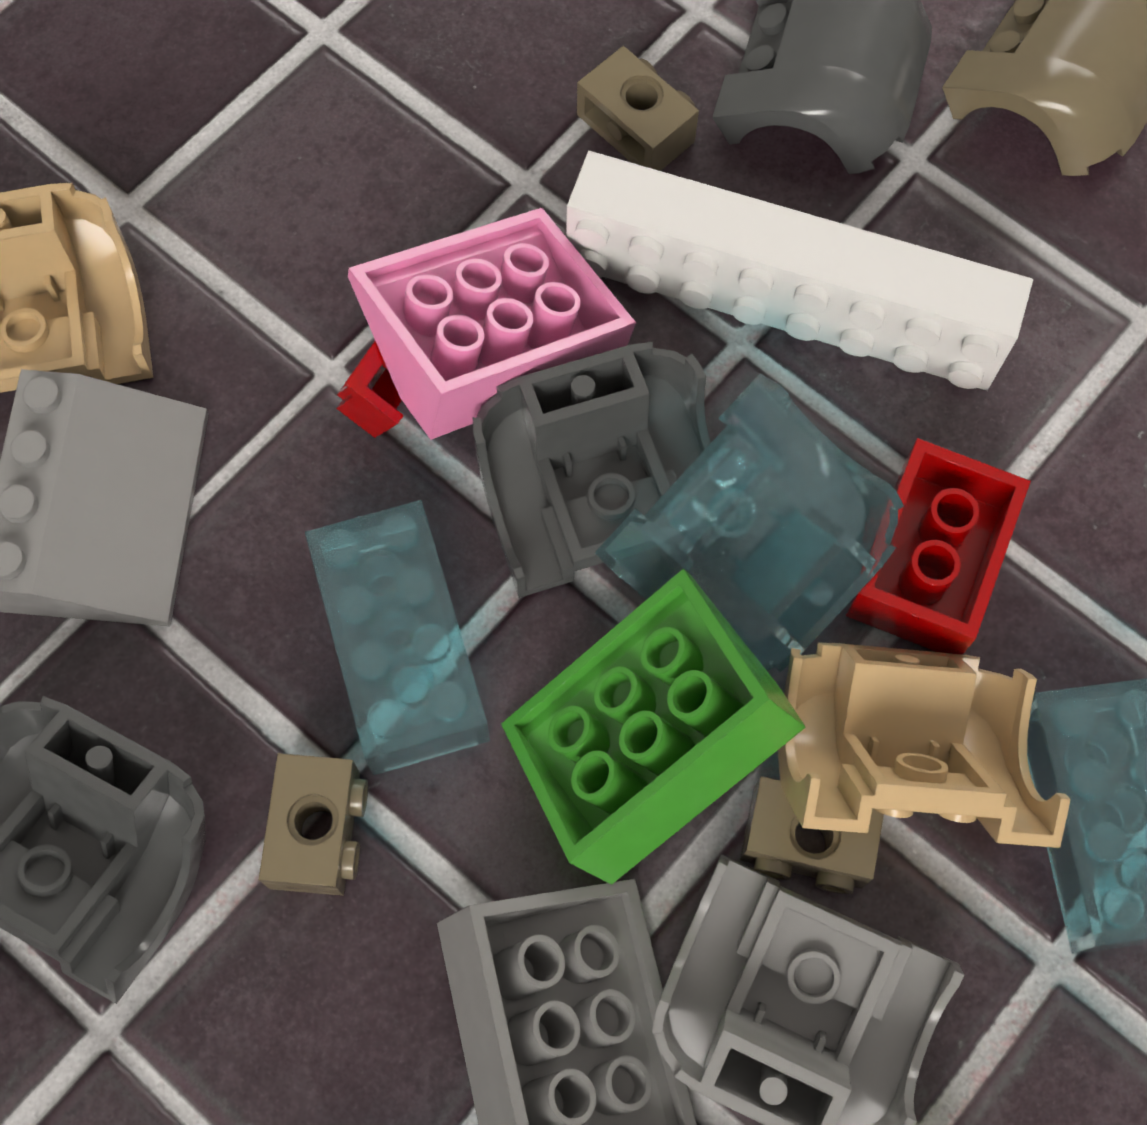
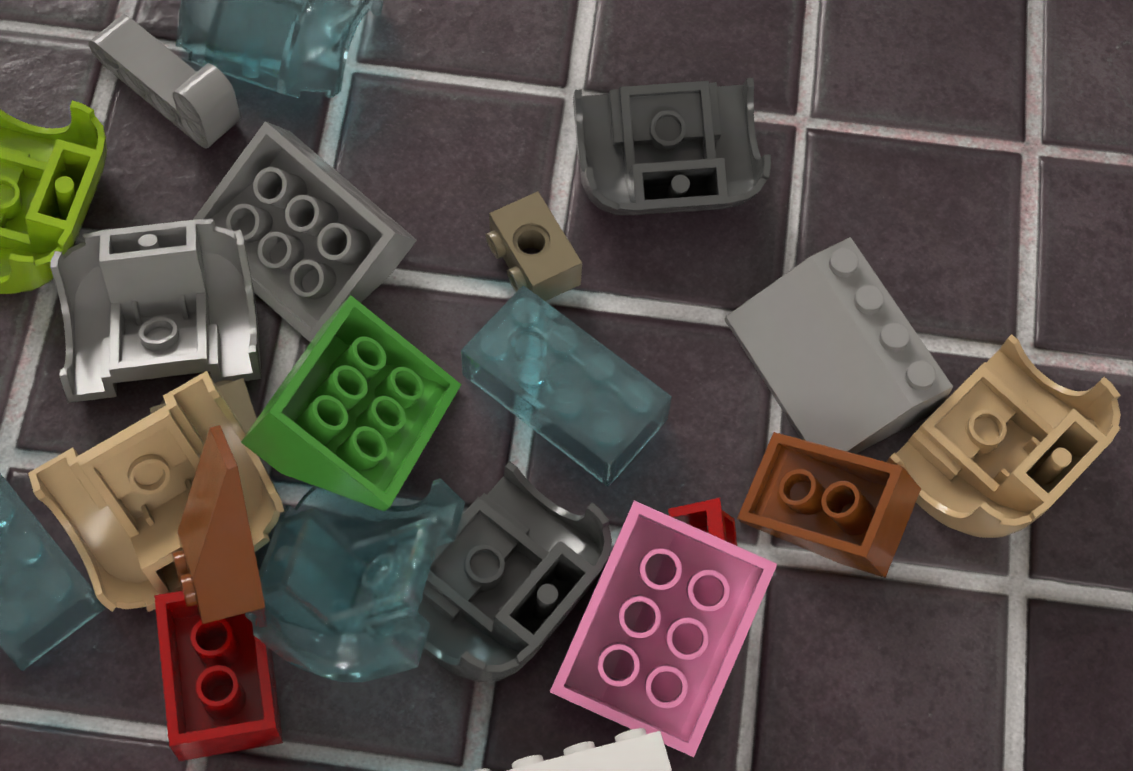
camera: 145 degrees right, 5 degrees down
(233, 357) = (831, 502): none -> dark orange slope
(897, 615) = (215, 539): none -> dark orange slope

